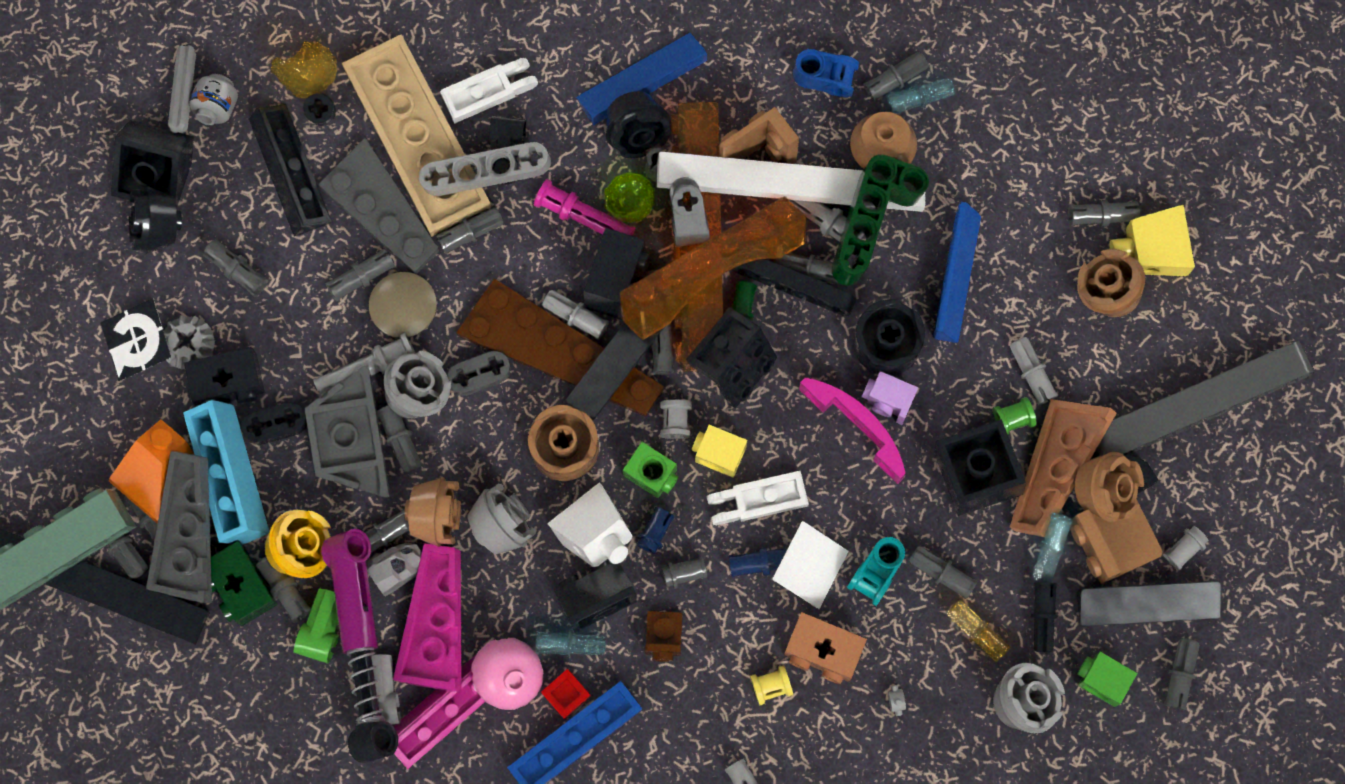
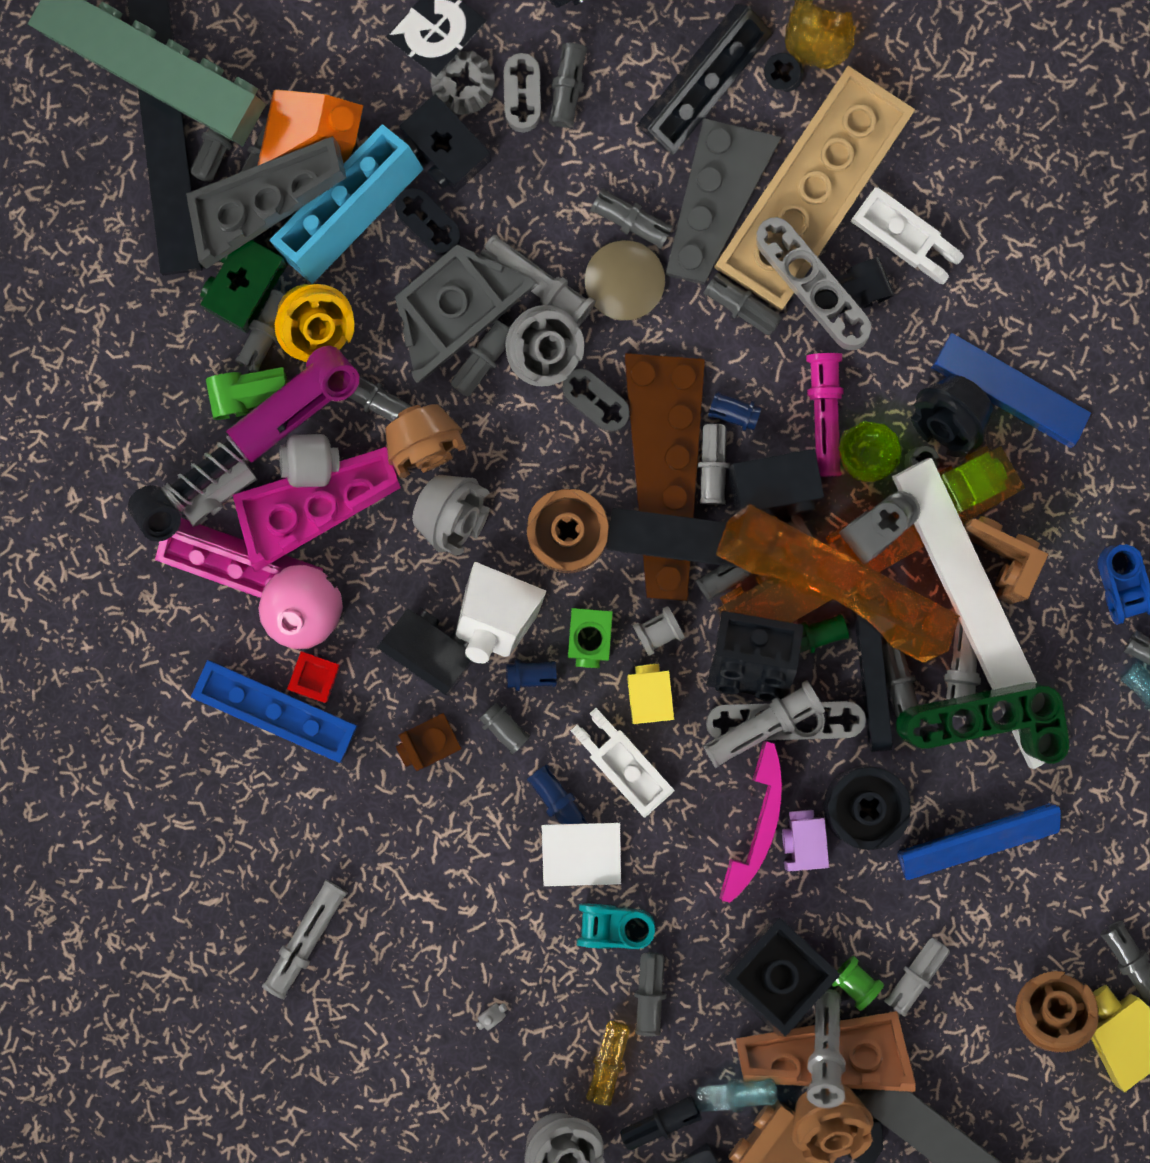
camera: 55 degrees right, 10 degrees up
(224, 296) = (512, 93): none -> light grey beam
(394, 567) = (348, 429): light grey rock -> none
(400, 605) = (308, 460): none -> light grey head
(545, 277) = (735, 411): none -> dark blue pin
(569, 644) = (366, 652): clear light blue axle -> none
(693, 130) = (975, 481): none -> clear neon green brick
(771, 685) = (436, 881): light yellow bush -> none
(787, 363) = (780, 716): none -> light grey pin
(795, 365) = (835, 709): none -> light grey beam
(813, 632) = (516, 936): nougat brick -> none
(884, 135) = (1085, 683): medium nougat cone -> none
(1025, 447) = (827, 1077): none -> light grey pin

